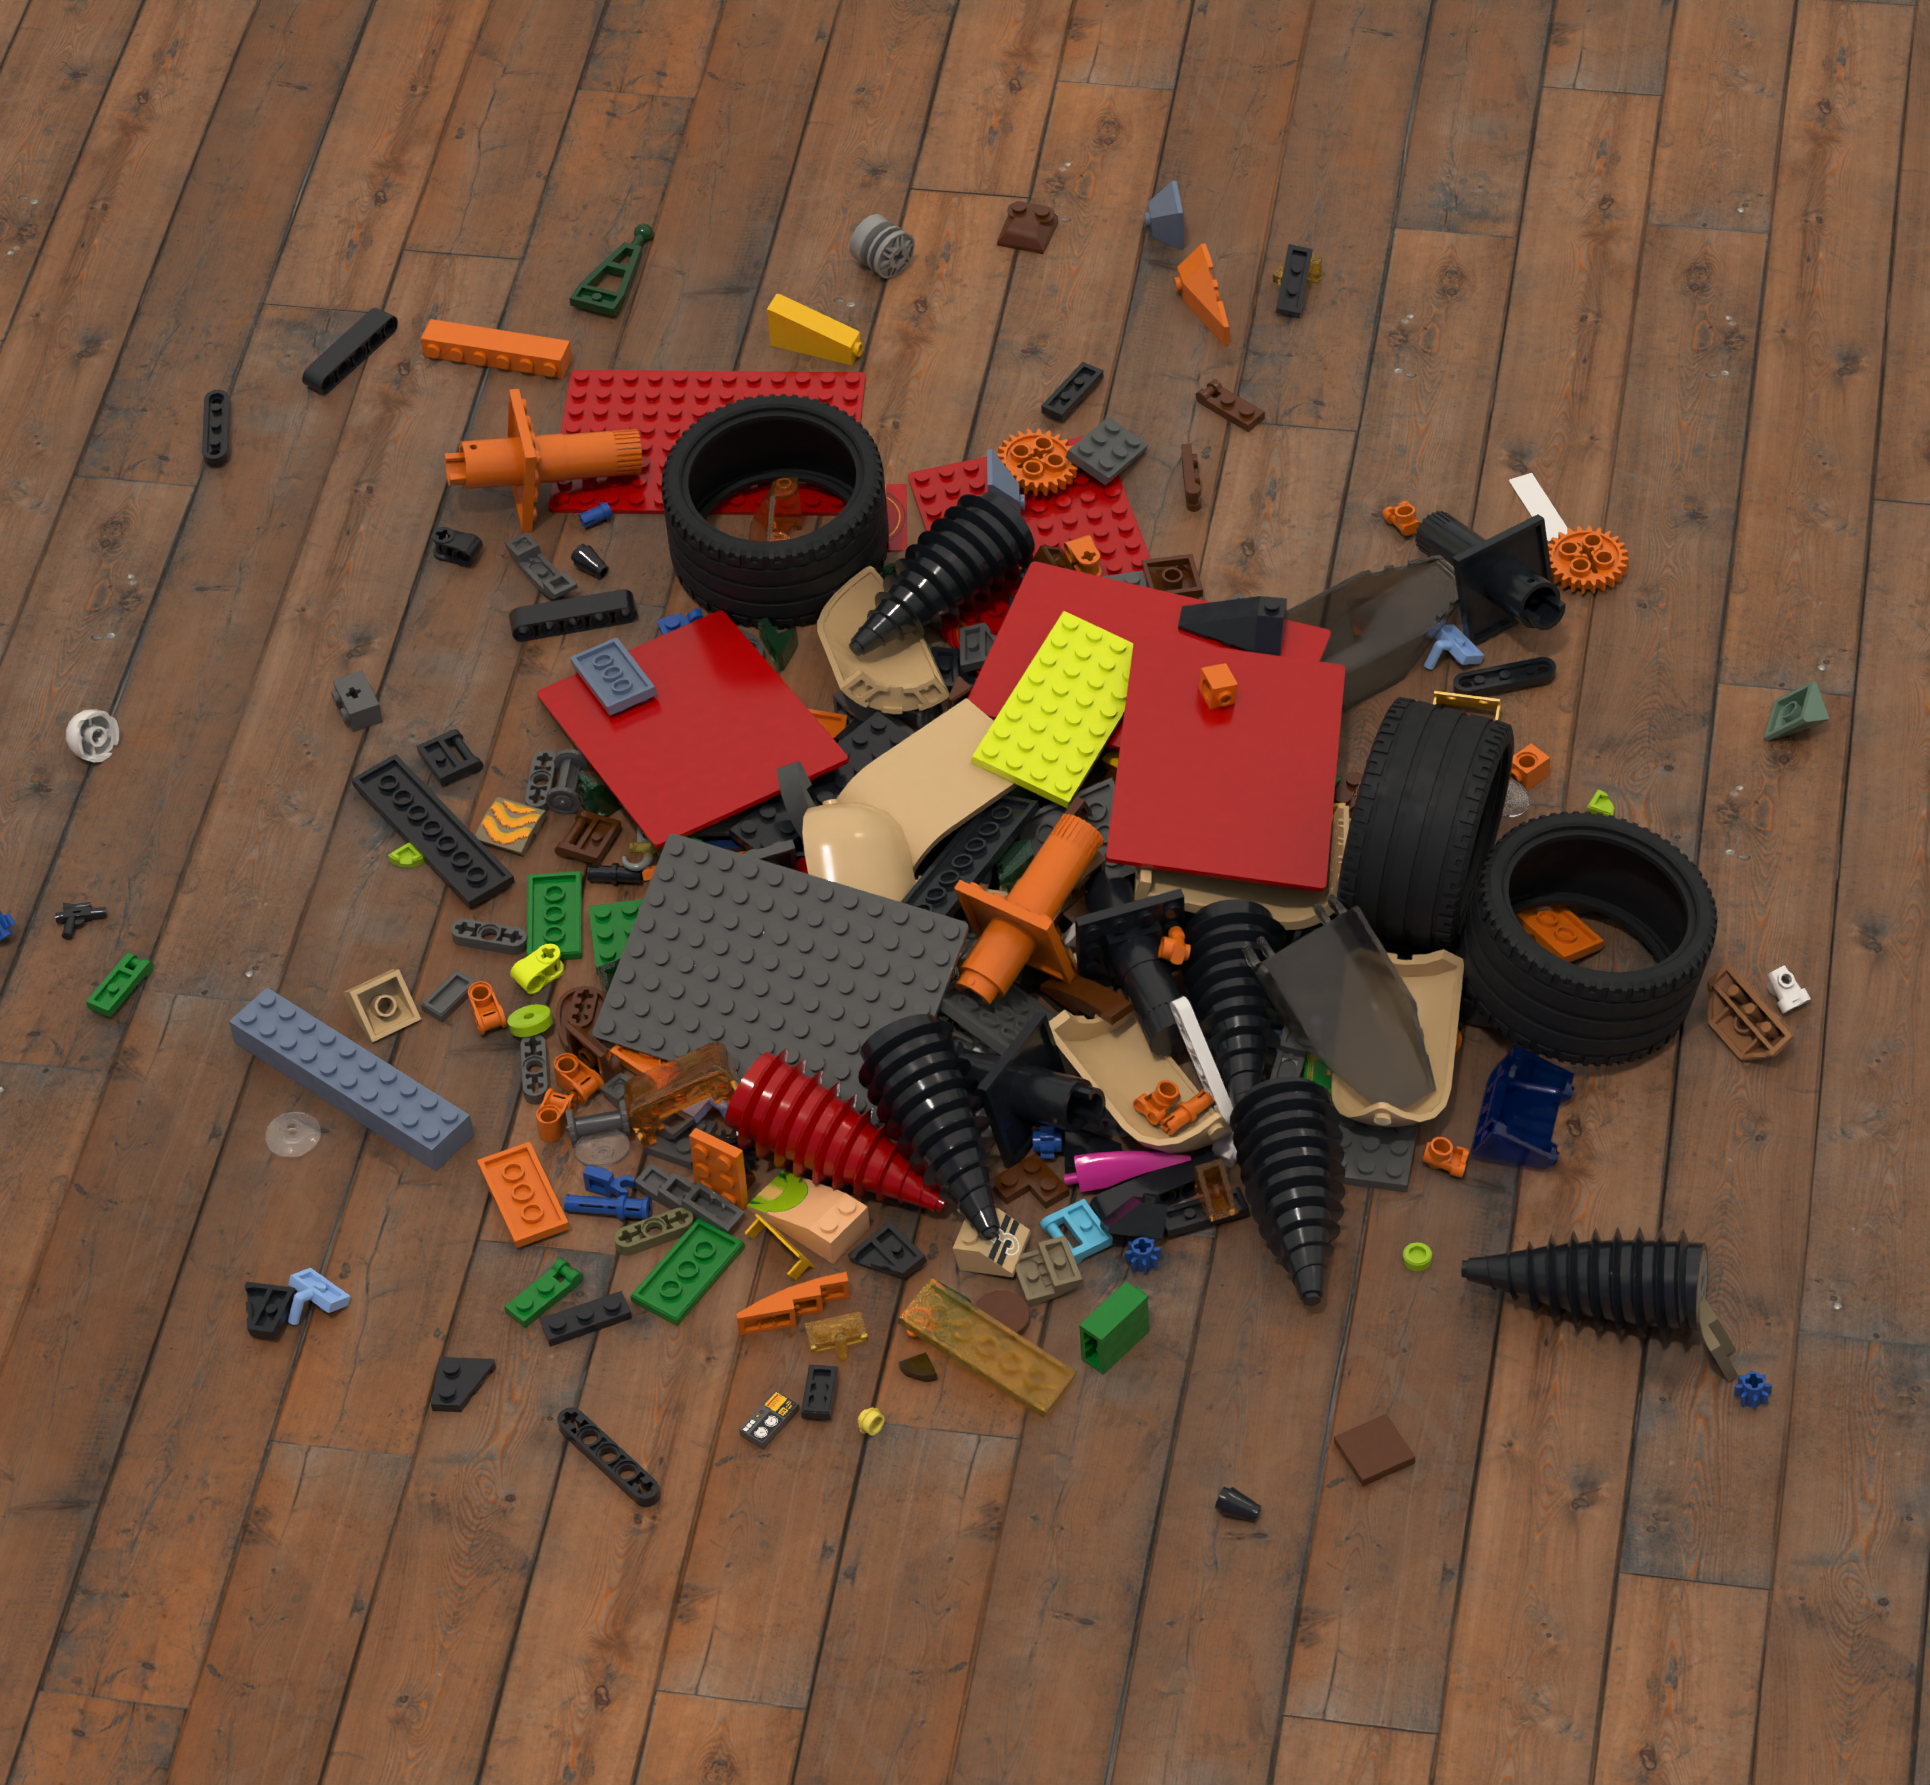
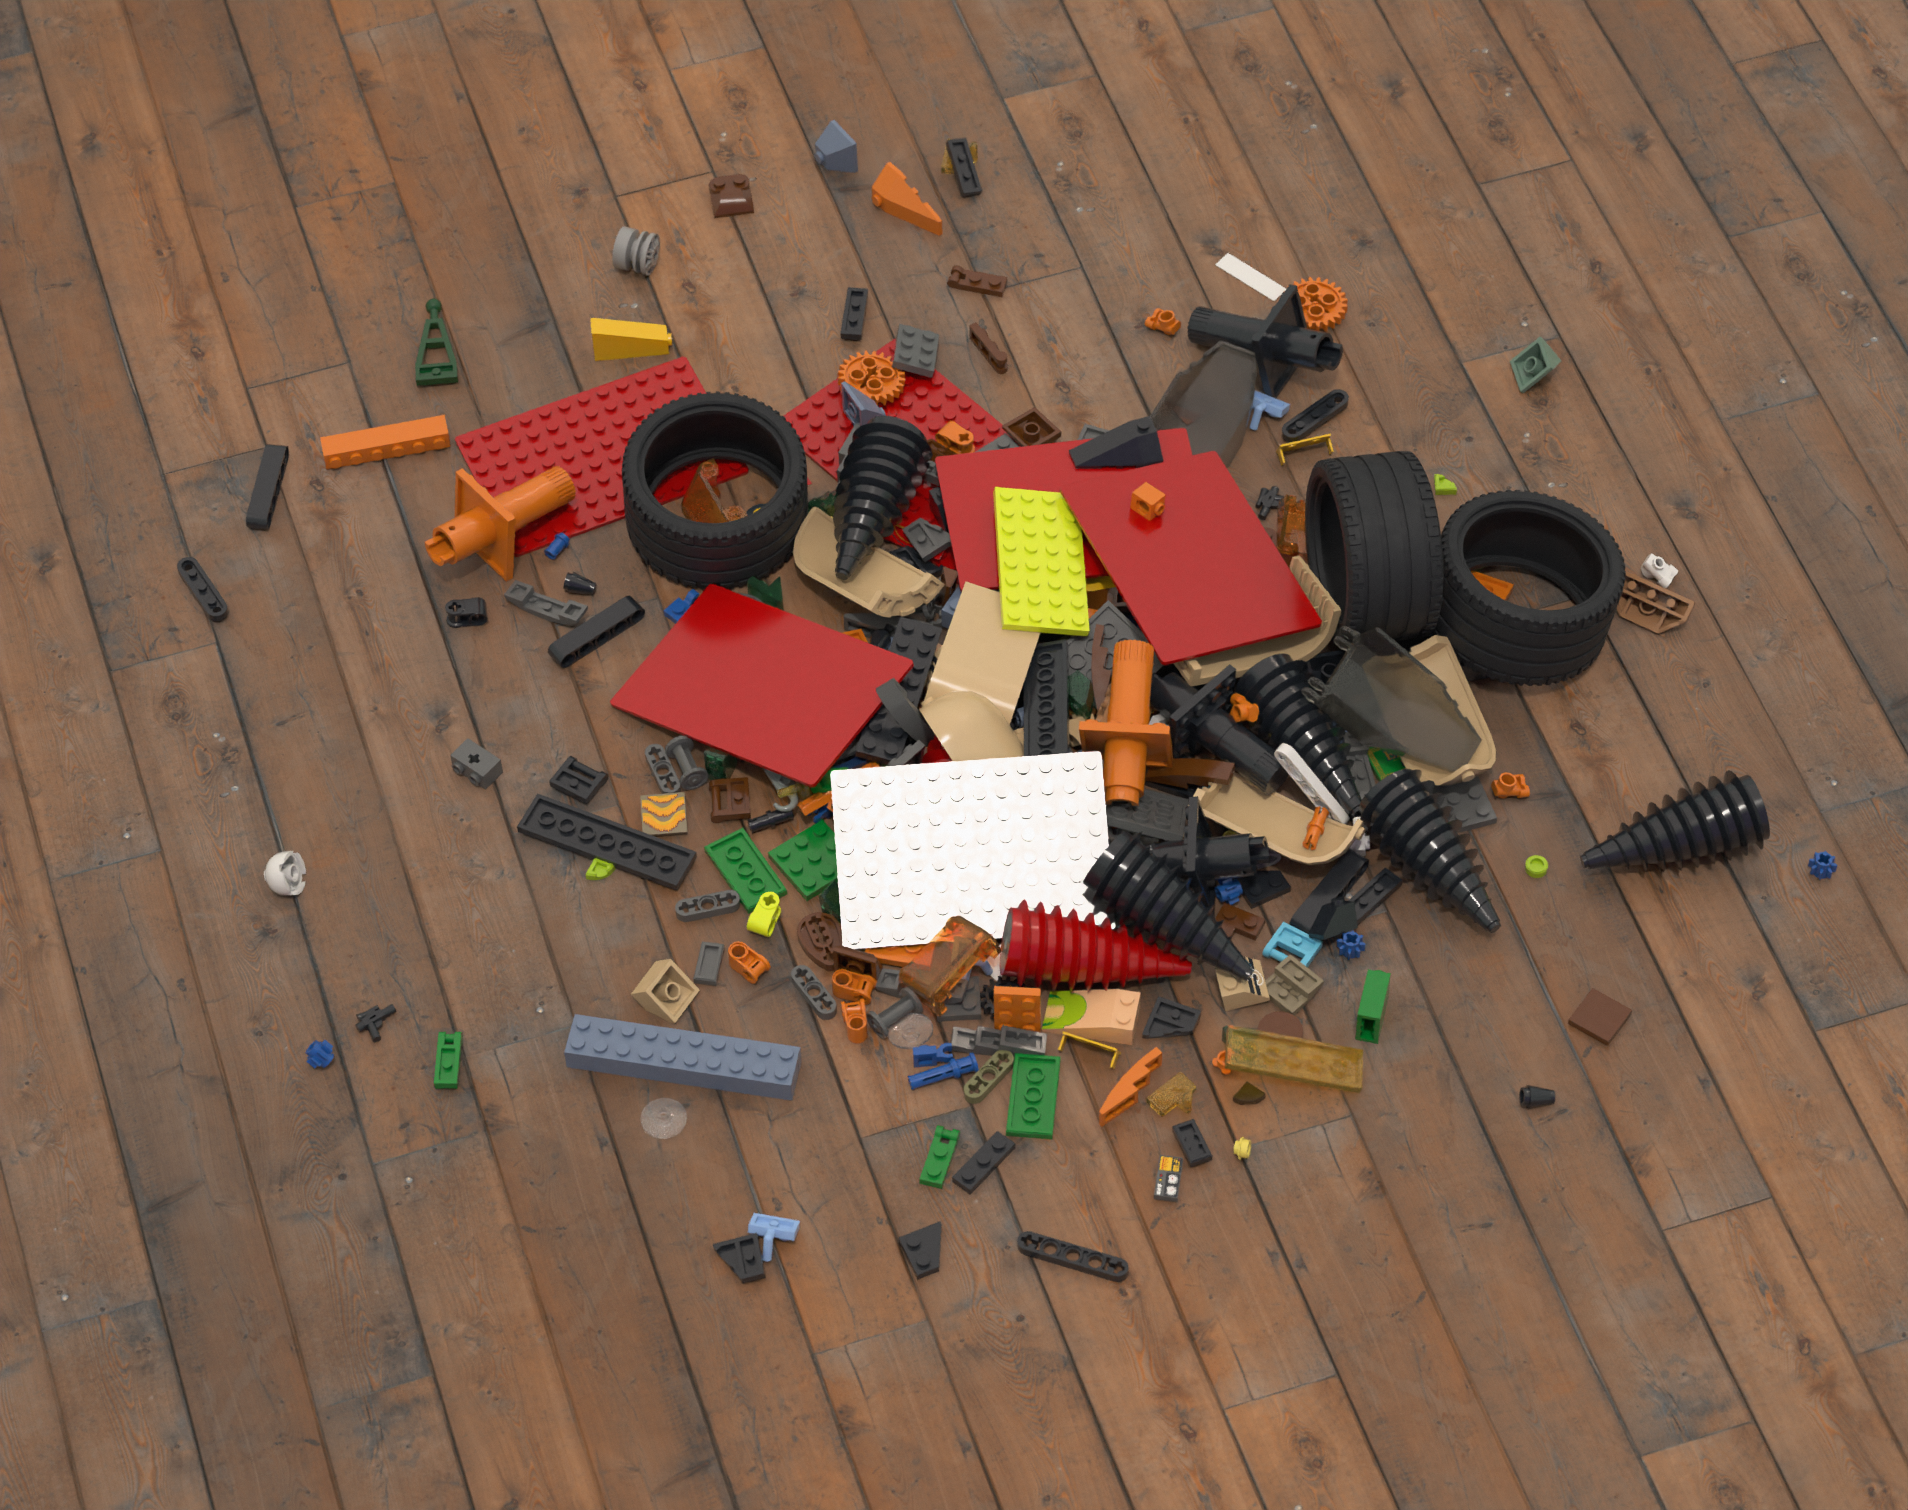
camera: 30 degrees left, 5 degrees up
(523, 1194) = (874, 1090): orange plate -> none
(530, 1020) = (786, 957): lime piece -> none
(613, 676) = (669, 667): sand blue plate -> none
(1109, 1168) = (1289, 891): dark pink piece -> none
(1158, 1102) = (1292, 829): orange plate -> none
(1214, 1190) = (1375, 877): clear orange slope -> none
(1521, 1110) = (1536, 732): clear blue windscreen -> none
(1717, 1339) = (1784, 844): dark tan slope -> none

